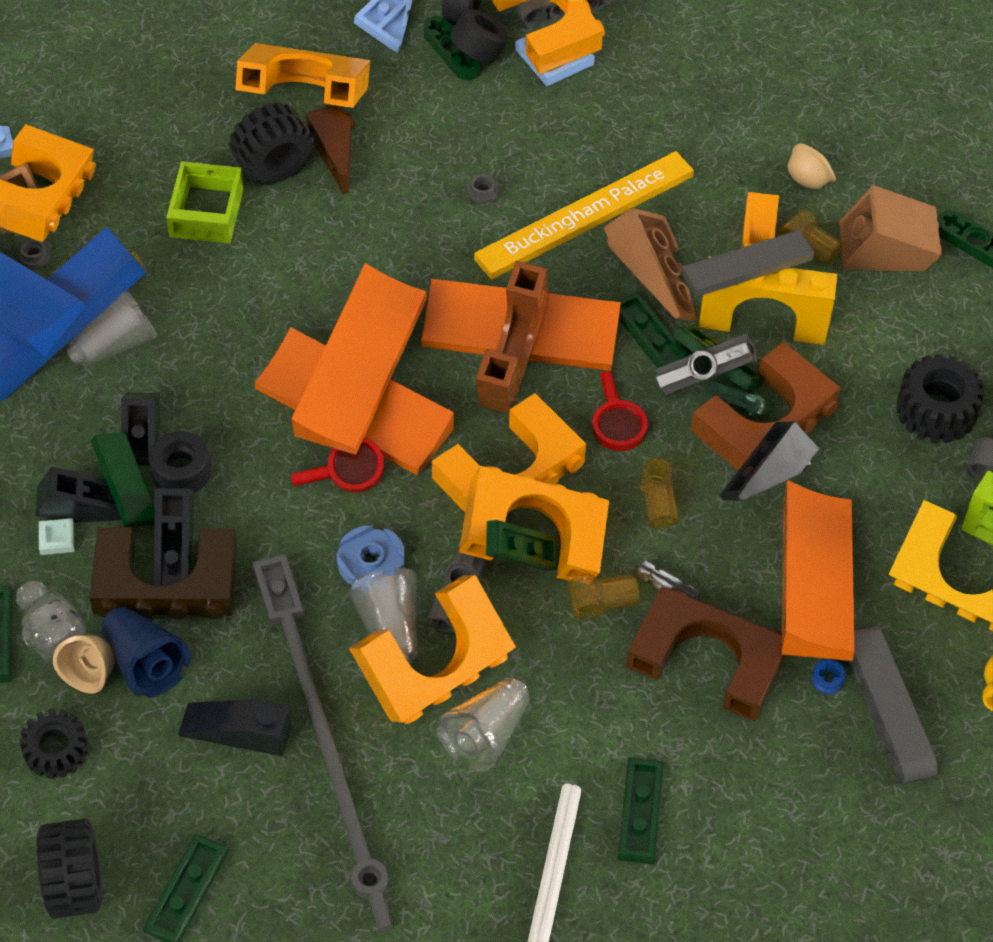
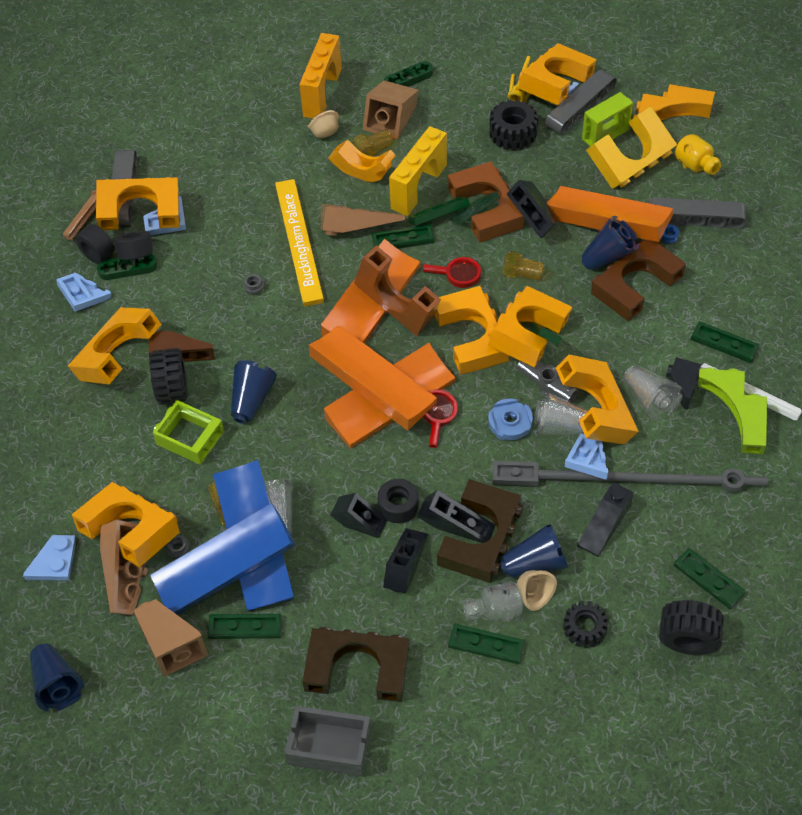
camera: 65 degrees left, 0 degrees up
(56, 536) = (422, 588): light aqua tile -> none
(124, 479) = (401, 533): dark green tile -> none
(292, 240) = (249, 389): none -> dark blue cone
(329, 671) = (587, 457): none -> light blue wing
(502, 865) = (748, 410): none -> lime arch
(528, 766) = (686, 375): none -> black slope
(594, 596) = (580, 316): clear yellow piece -> none
(648, 572) = (580, 284): dark grey axle -> none
(724, 358) = (446, 224): dark grey piece -> none
(745, 587) = (610, 244): none -> dark blue cone
(747, 263) = (408, 158): dark grey tile -> none
(861, 115) = (323, 65): none -> light orange arch

